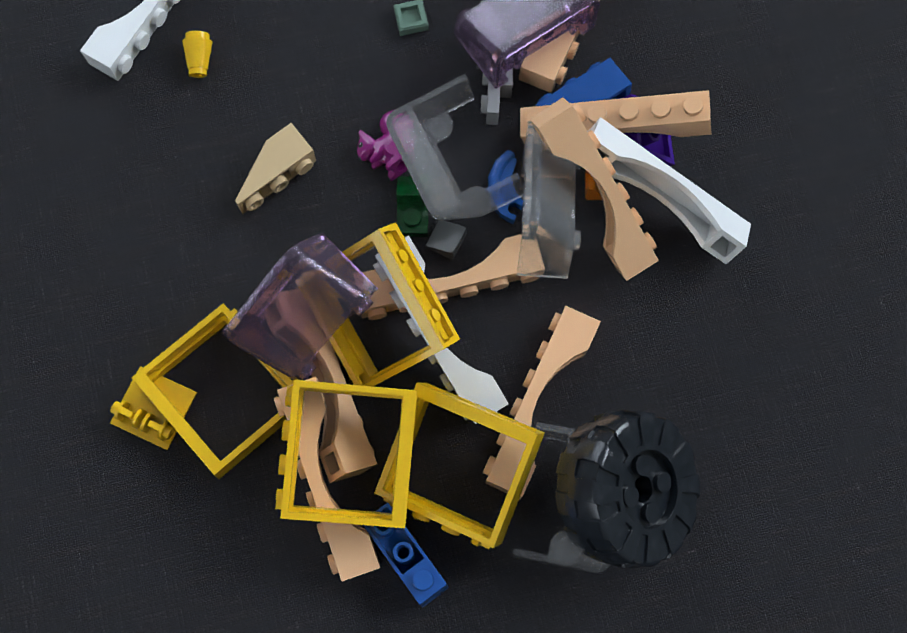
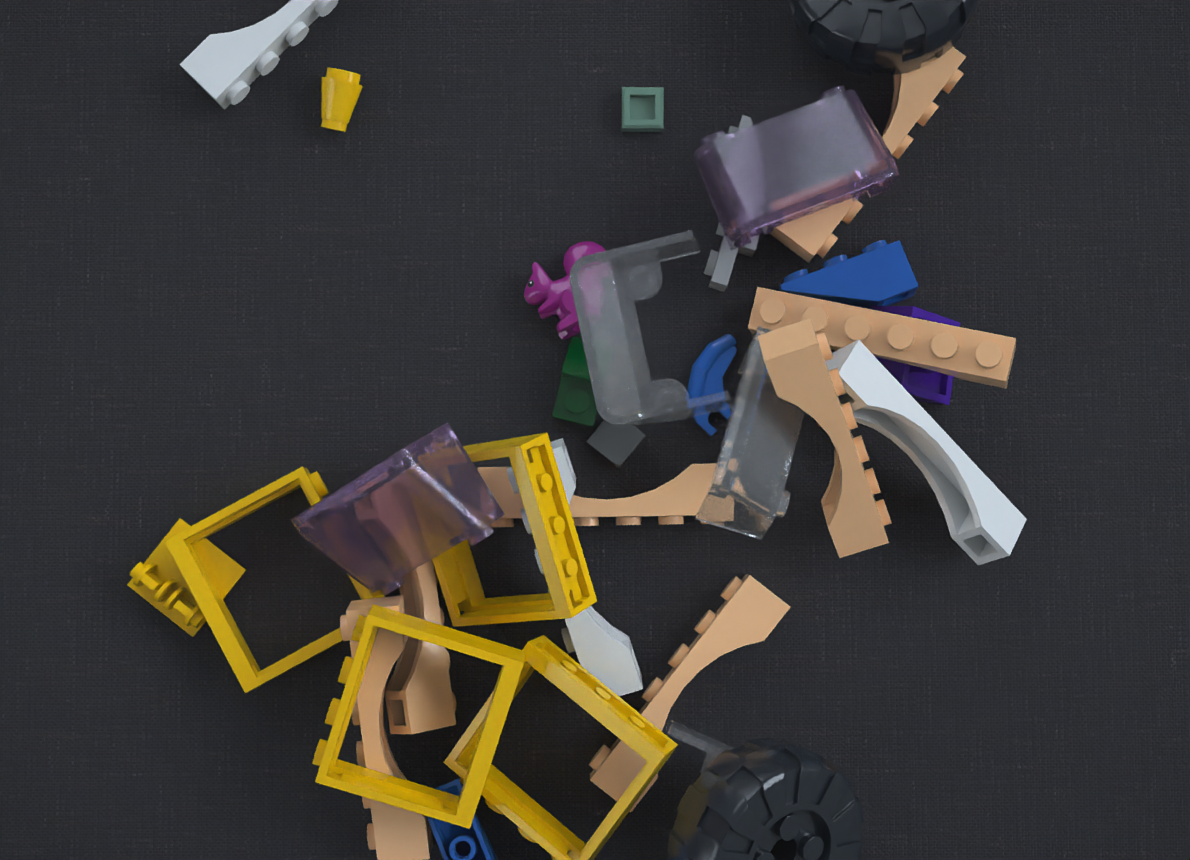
camera: 15 degrees right, 10 degrees up
(277, 163) = (417, 280): tan slope -> none

